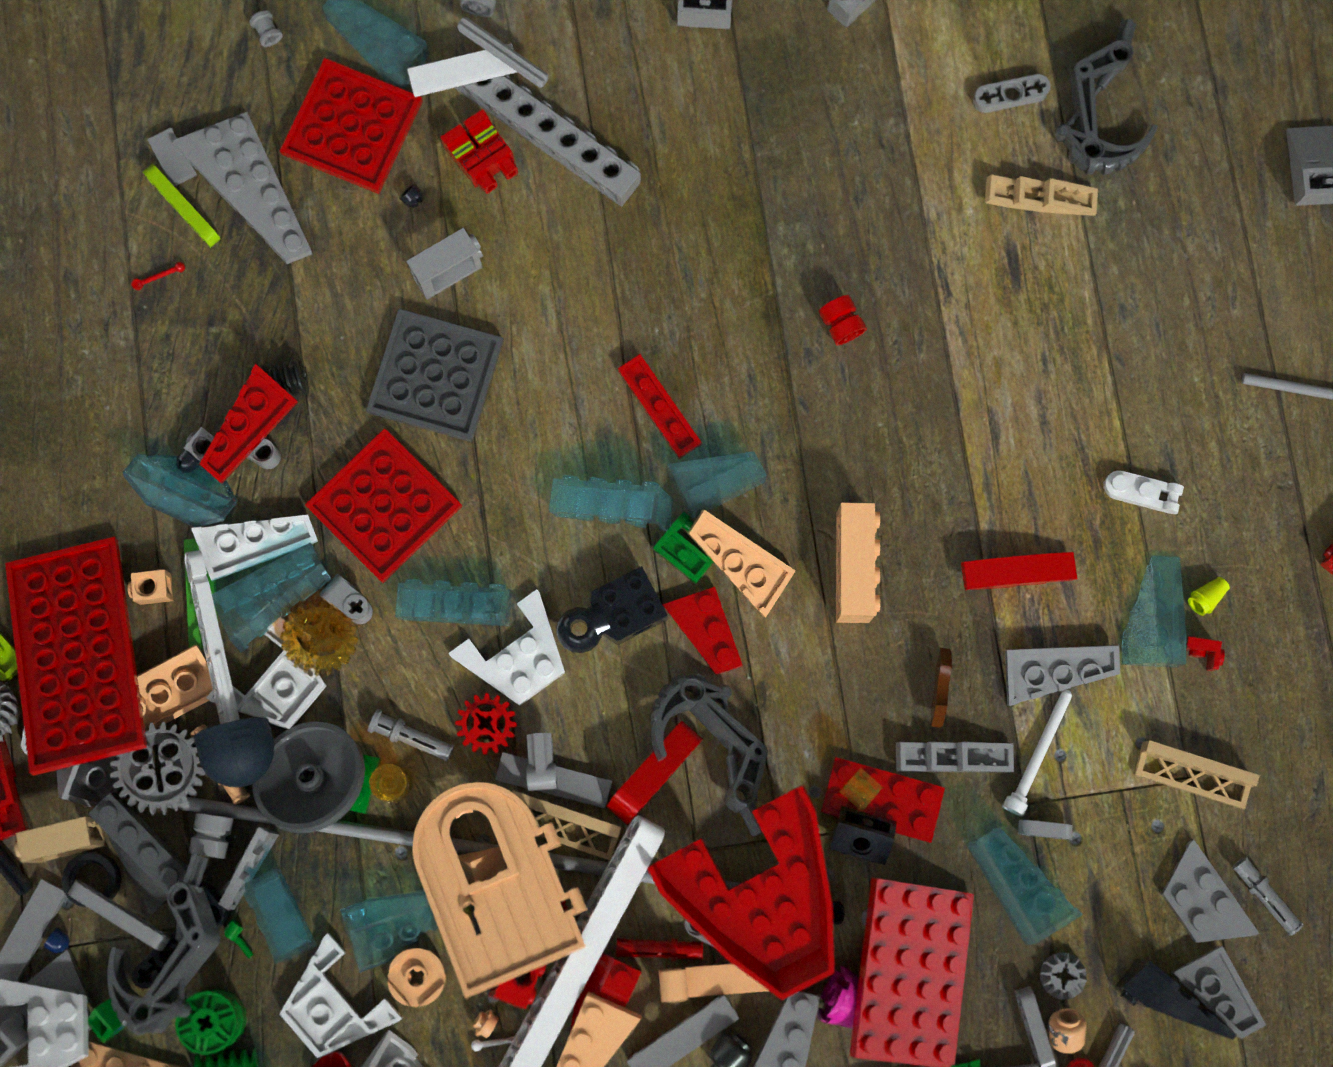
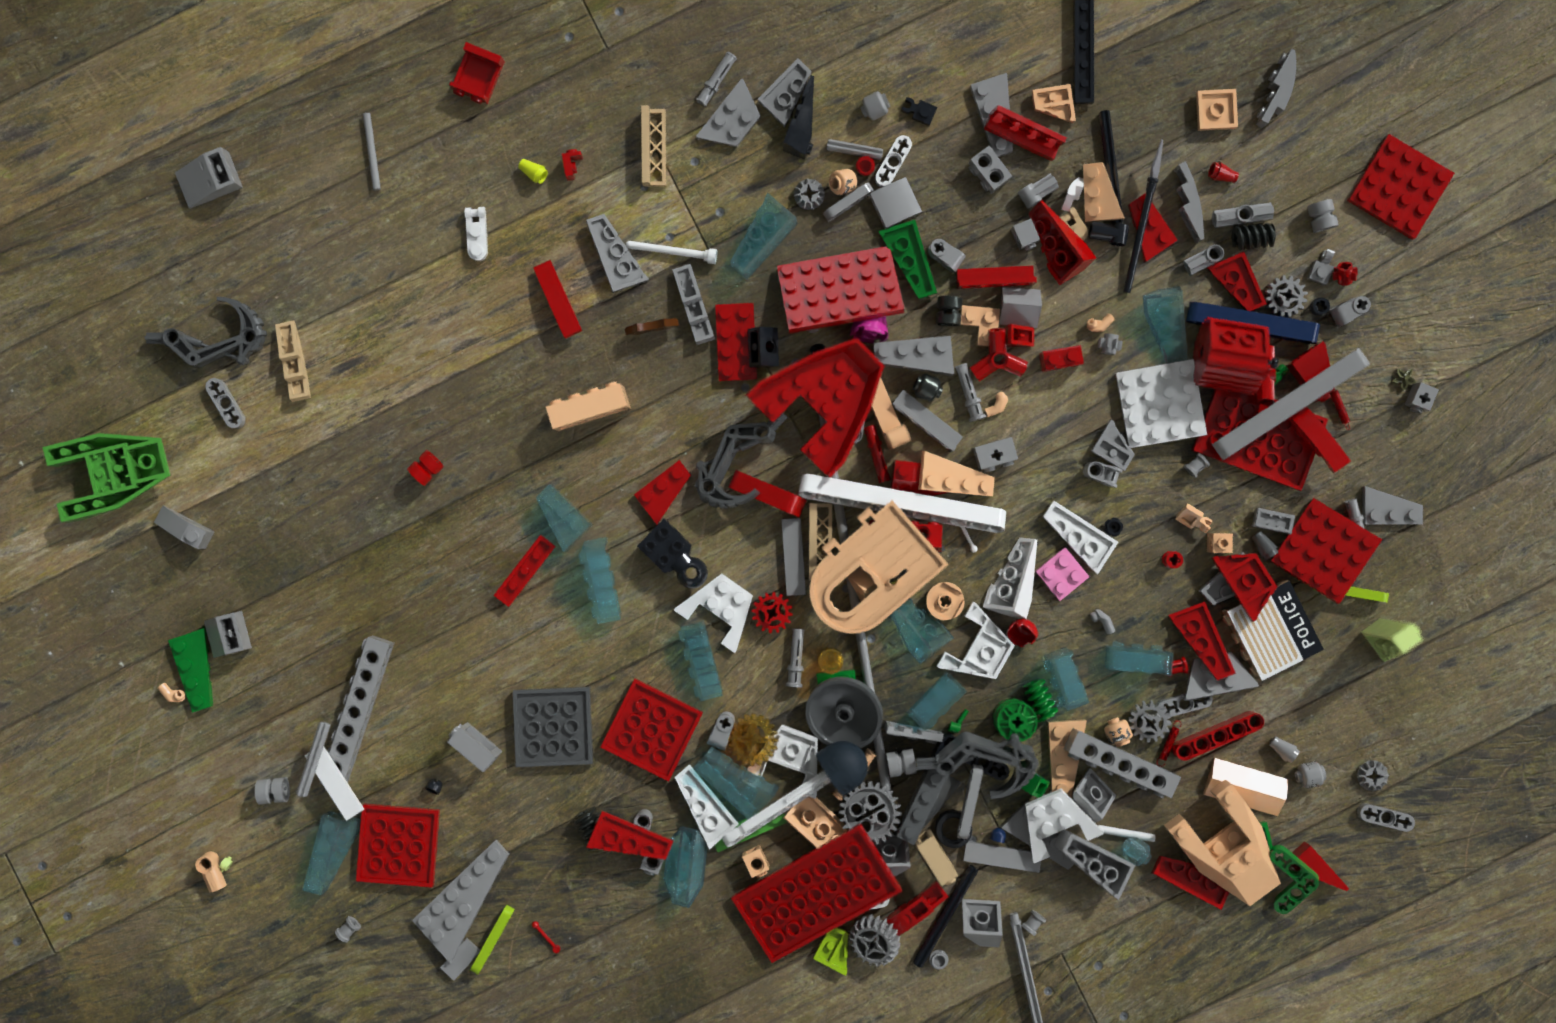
camera: 110 degrees left, 10 degrees up
(186, 462) = (666, 869): black hinge -> none
(484, 161) = (393, 746): red hips -> none
(485, 1023) = (958, 548): light nougat plate -> none
(541, 769) = (788, 567): light grey piece -> none
(682, 553) = (619, 521): green plate -> none
(746, 564) = (612, 479): light nougat wing -> none
(861, 789) = (735, 357): clear yellow brick -> none
(1045, 829) = (721, 232): light grey beam -> none
(1157, 620) = (560, 199): clear light blue wedge -> none

